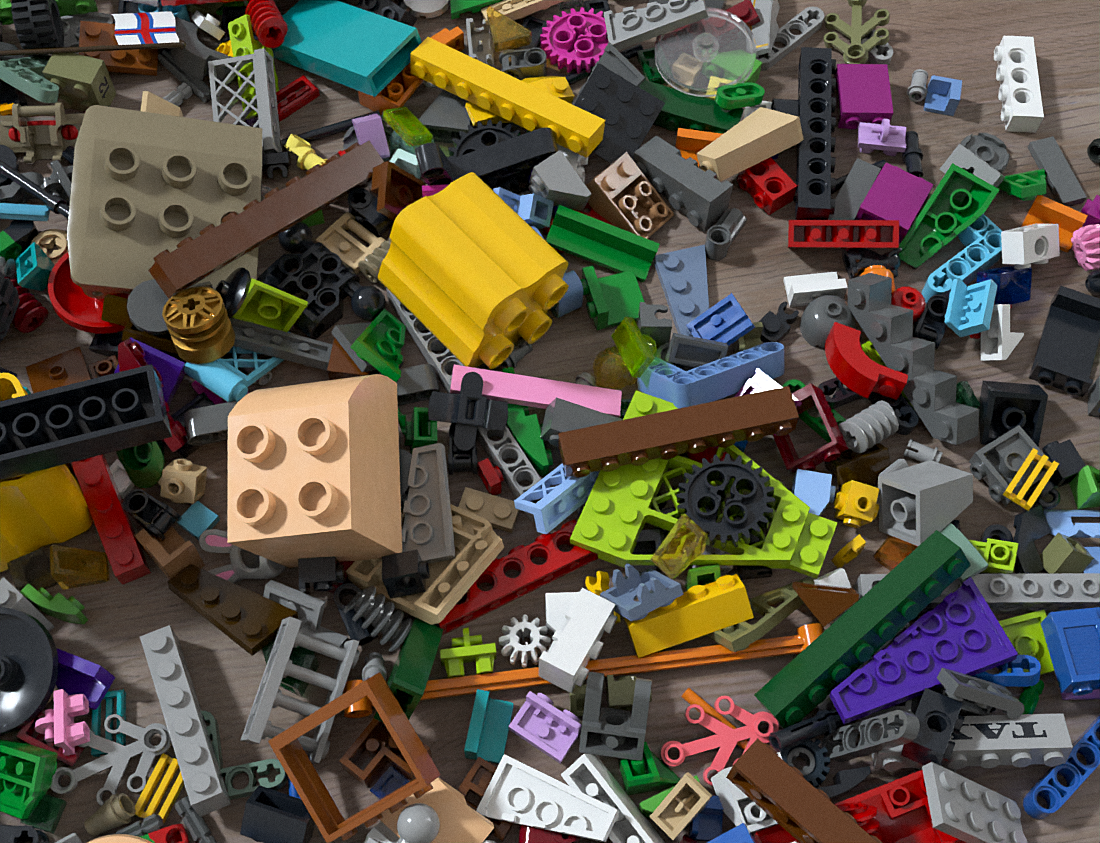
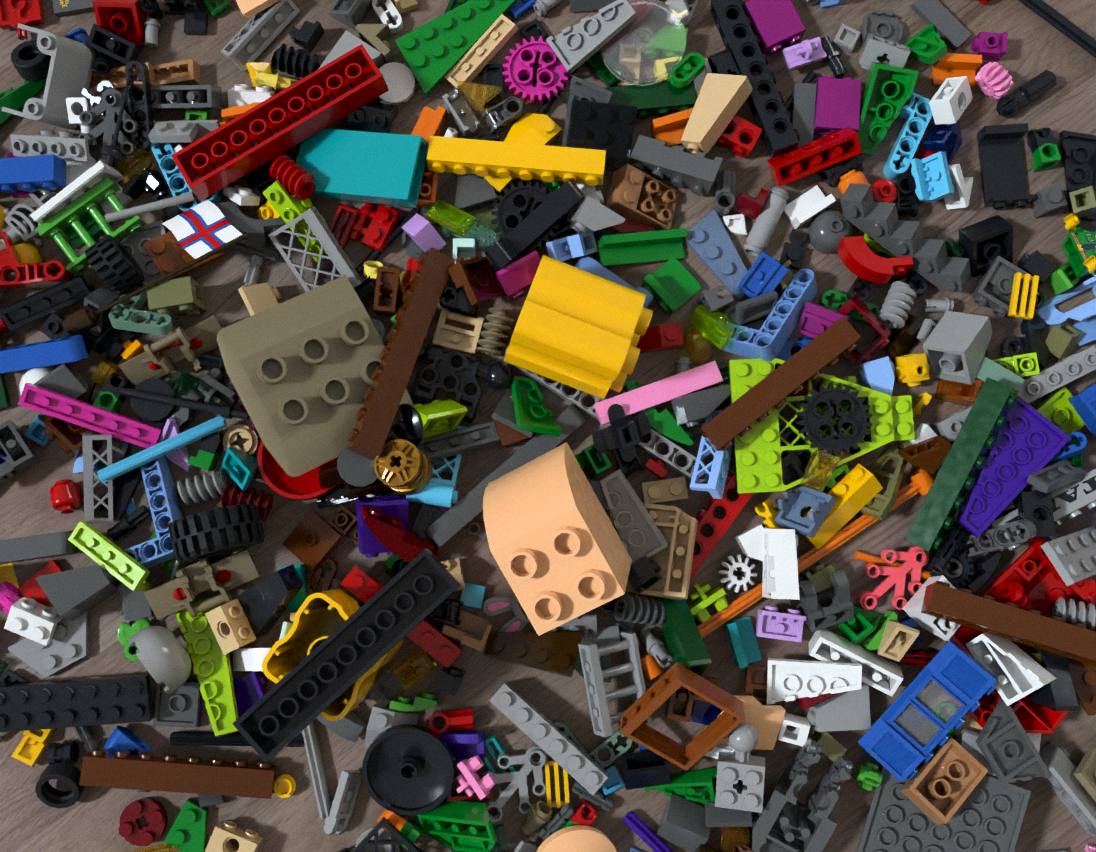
camera: 25 degrees left, 20 degrees up
(32, 160) = (183, 382): none -> clear green tile
(85, 645) = (455, 720): none -> red piece
(112, 598) = (449, 679): none -> black brick
(229, 818) = (614, 780): none -> dark azure tile
(297, 162) = (387, 291): none -> reddish brown arch
(327, 114) = (379, 229): none -> red plate
(572, 344) = (661, 338): none -> red slope
(721, 271) = (735, 224): none -> white tile
(746, 256) = (750, 206): none -> dark red panel
(760, 277) = (766, 222): none -> light grey axle
(938, 146) = (846, 38): none -> light grey tile

